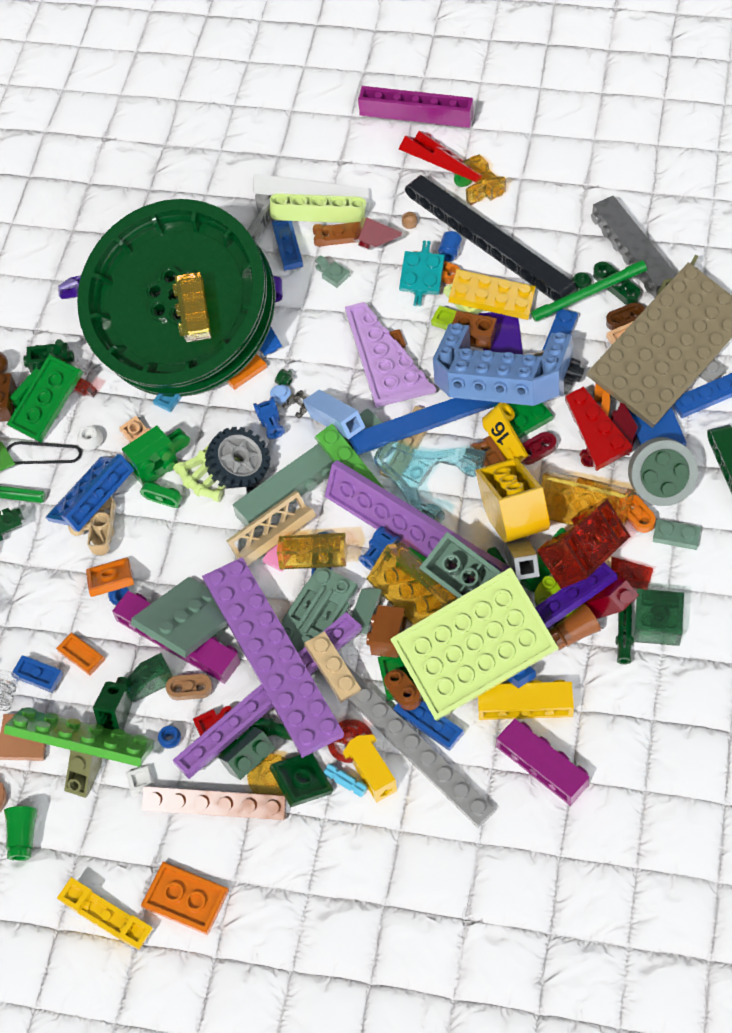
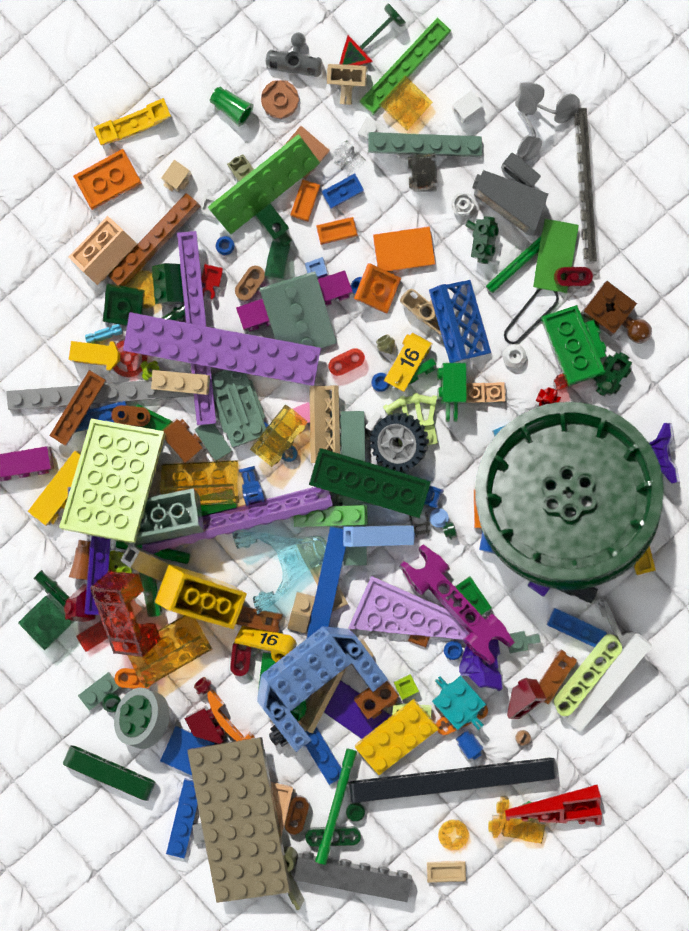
camera: 130 degrees right, 30 degrees up
(56, 587) = (404, 249): none -> orange tile
(71, 700) = (305, 200): none -> orange tile
(107, 386) = (548, 396): none -> red gear
(131, 640) = (319, 266): none -> medium blue plate
(132, 830) = (176, 177): none -> tan brick
(156, 503) = (408, 361): none -> yellow door
(157, 538) = (386, 344): none -> olive plate
(192, 307) = (539, 494): clear yellow brick -> none
(196, 518) = (378, 382): none -> blue plate
(201, 555) = (346, 362): none -> clear red plate
(261, 843) = (102, 250): none -> light nougat slope
(293, 452) = (369, 483): none -> dark green plate
(326, 325) = (473, 595): none -> green plate
(336, 357) = (479, 631): none -> magenta piece
(344, 710) = (146, 366): none -> lime plate
(376, 280) = (482, 675): none -> dark purple piece
(383, 309) = (453, 650): none -> blue plate
(416, 106) = (629, 833): magenta brick -> none
(435, 738) = (77, 407): none -> dark orange plate
(457, 433) = (301, 612): none -> tan slope
(531, 217) = (448, 827): none -> clear yellow gear
(564, 196) = (446, 871): none -> tan tile
(601, 436) = (210, 704): red wing -> none
(676, 514) = (111, 702): none -> dark green plate

